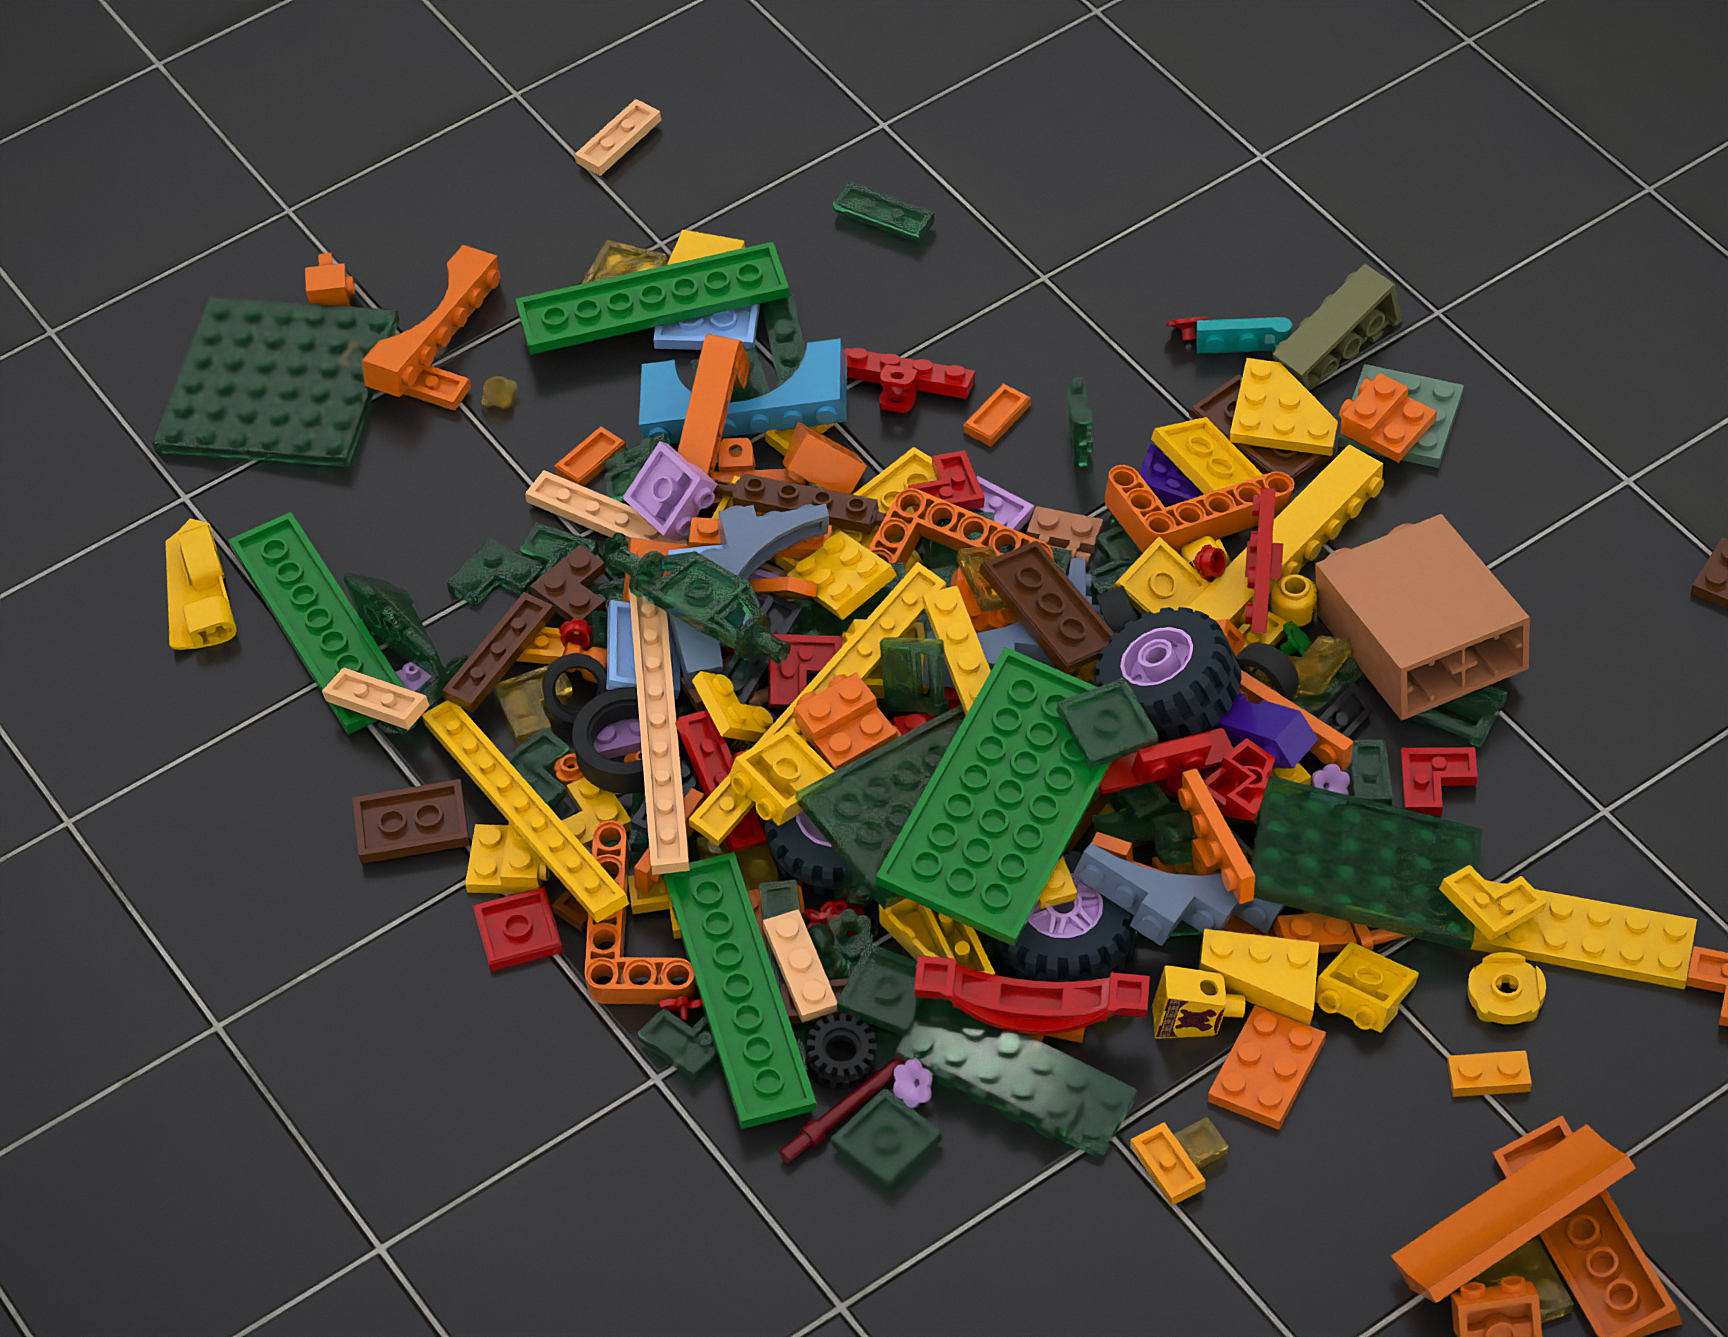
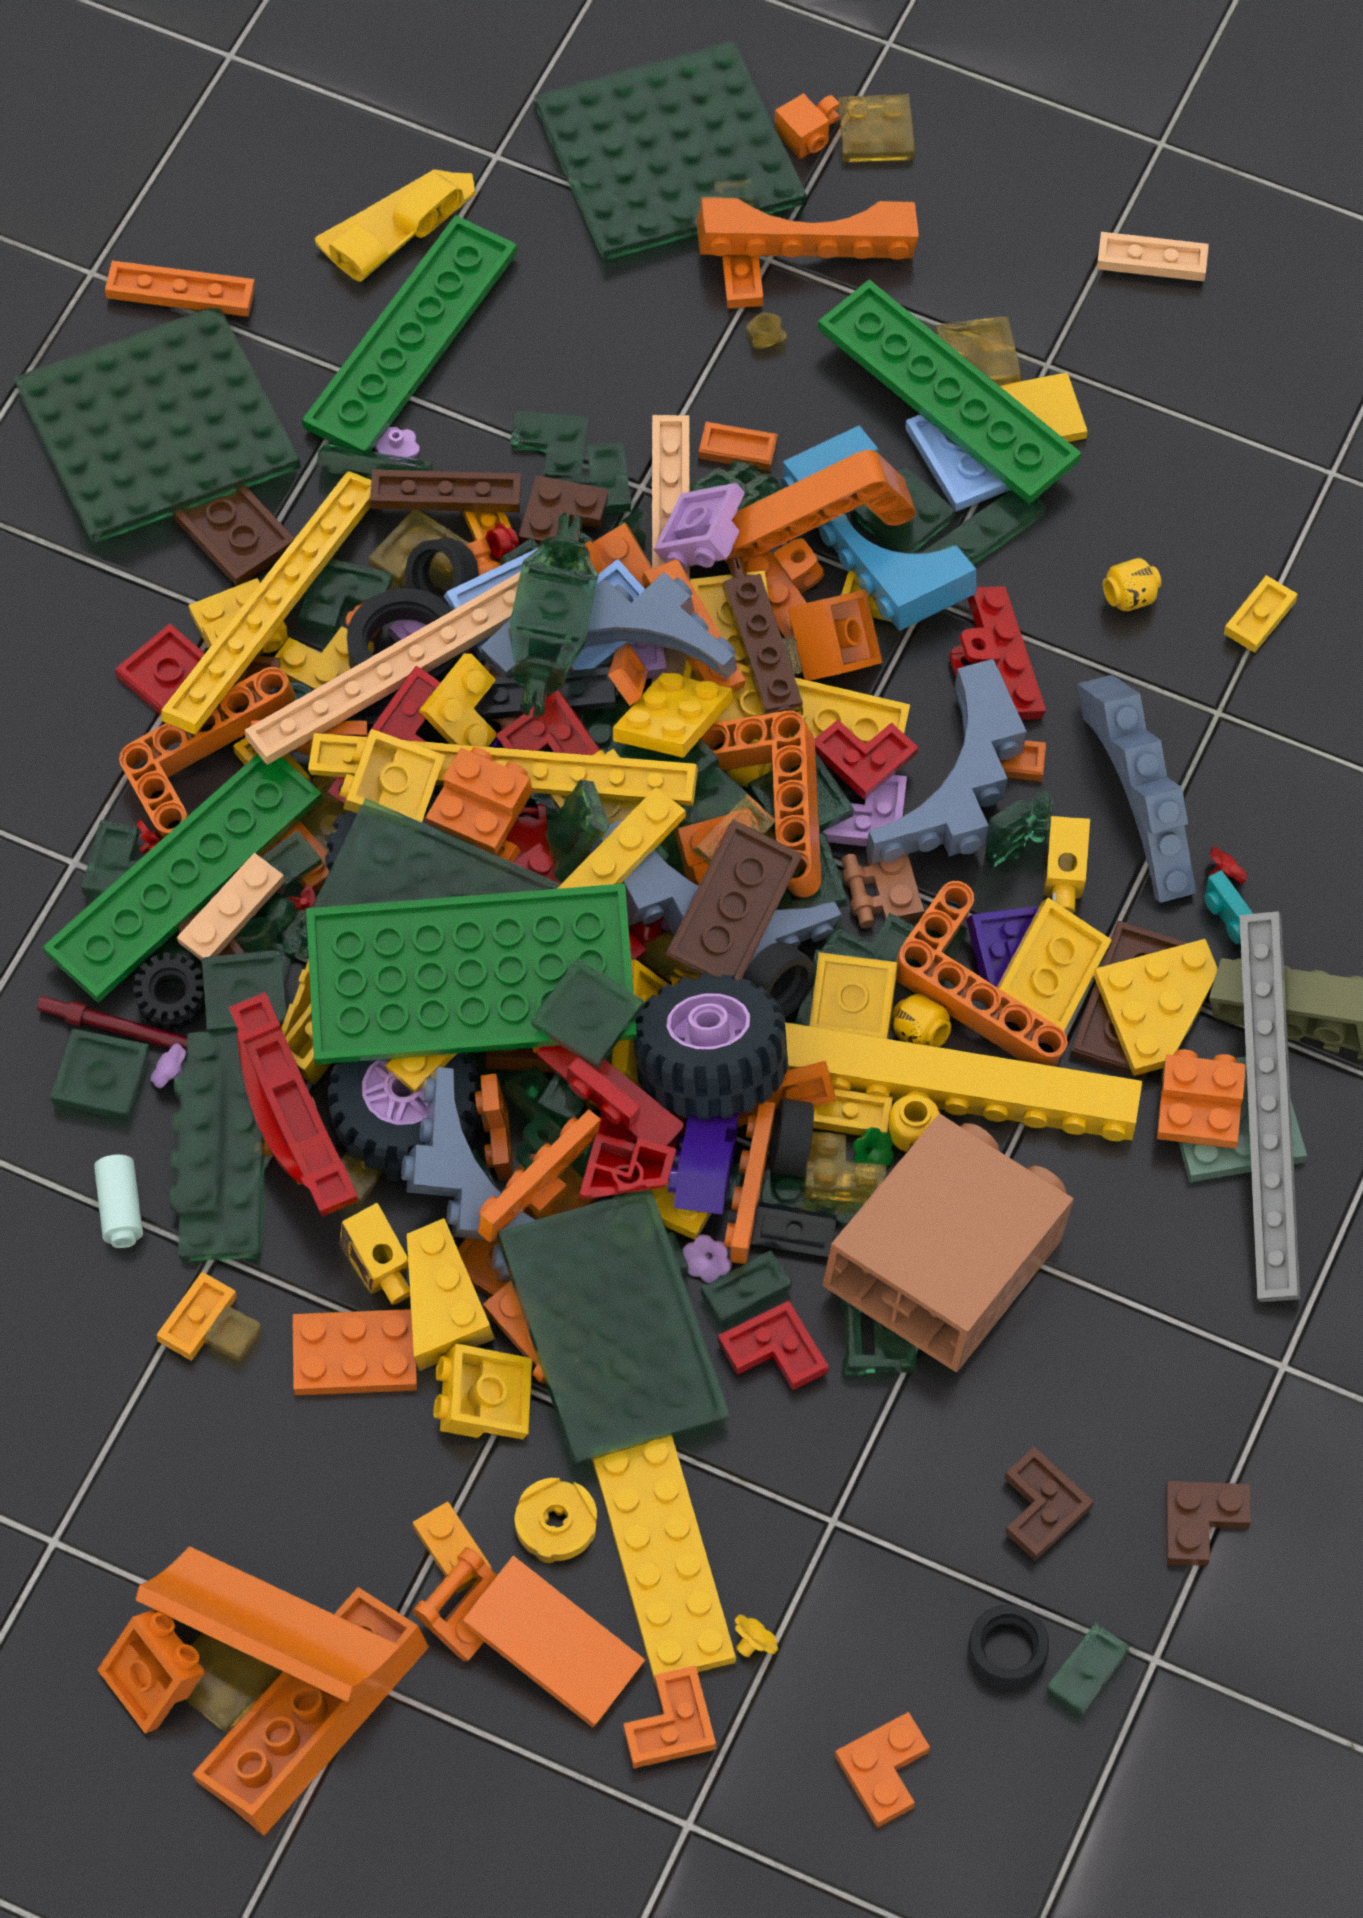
camera: 55 degrees right, 10 degrees up
(142, 760) = (179, 288): none -> orange plate
(265, 833) = (156, 423): none -> clear green plate
(365, 247) = (876, 128): none -> clear yellow plate
(375, 698) = (330, 423): light nougat plate -> none
(393, 620) = (432, 393): clear green wedge -> none
(884, 212) = (1204, 530): clear green plate -> none
(904, 270) = (1131, 584): none -> yellow head
(981, 211) = (1260, 614): none -> yellow plate
(1011, 427) = (978, 779): none -> sand blue arch
(1022, 1174) = (118, 1200): none -> light aqua brick
(1081, 317) = (1156, 801): none -> sand blue arch
(1123, 408) = (1066, 860): none -> yellow torso
(1210, 562) = (903, 1031): red plate -> none
(1262, 560) = (913, 1065): red plate -> none
(1422, 376) = (1269, 1107): none -> light grey plate
(1489, 909) = (618, 1461): yellow plate -> none
(1556, 1079) = (451, 1631): none -> orange plate
(1621, 1032) = (553, 1641): none -> orange tile
(1669, 658) = (1054, 1503): none -> reddish brown plate
(1686, 901) = (754, 1636): none -> yellow plant

